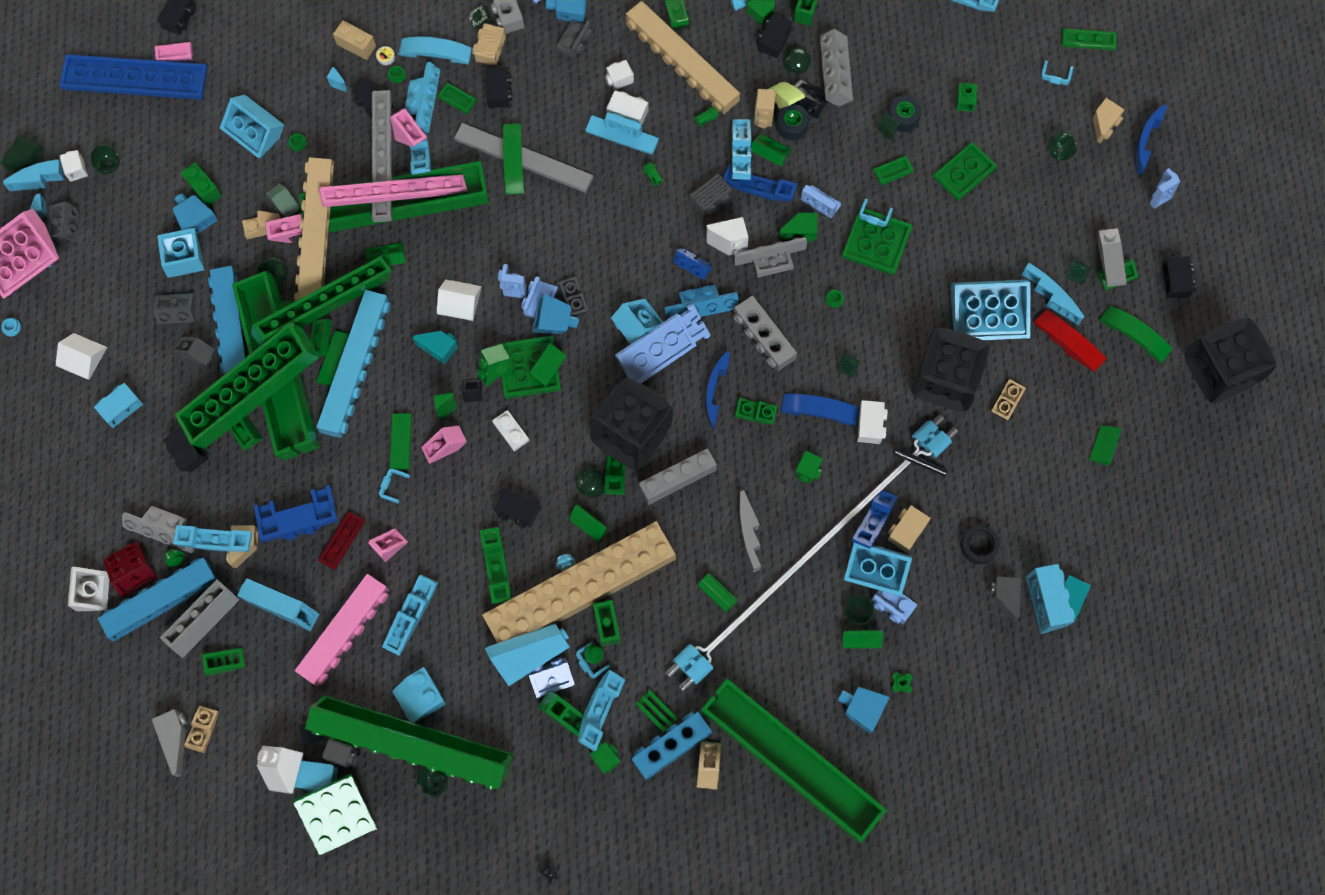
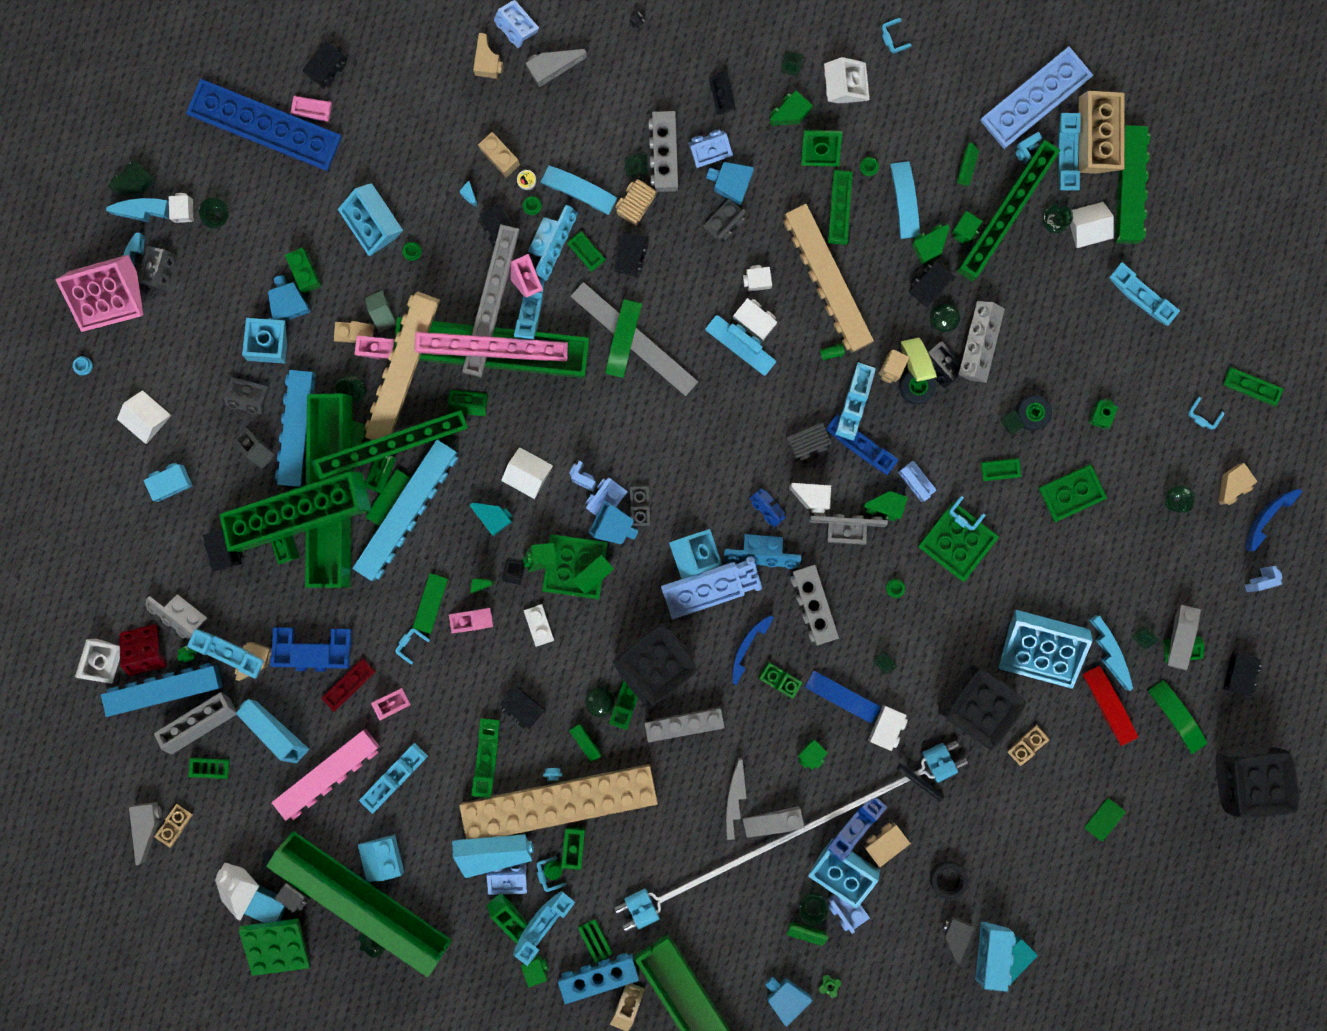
camera: 20 degrees right, 15 degrees up
(652, 173) = (758, 399): green pin -> none
(717, 592) = (686, 848): green axle -> none
(770, 149) = (885, 407): green slope -> none
(794, 541) = (774, 822): none -> light grey slope

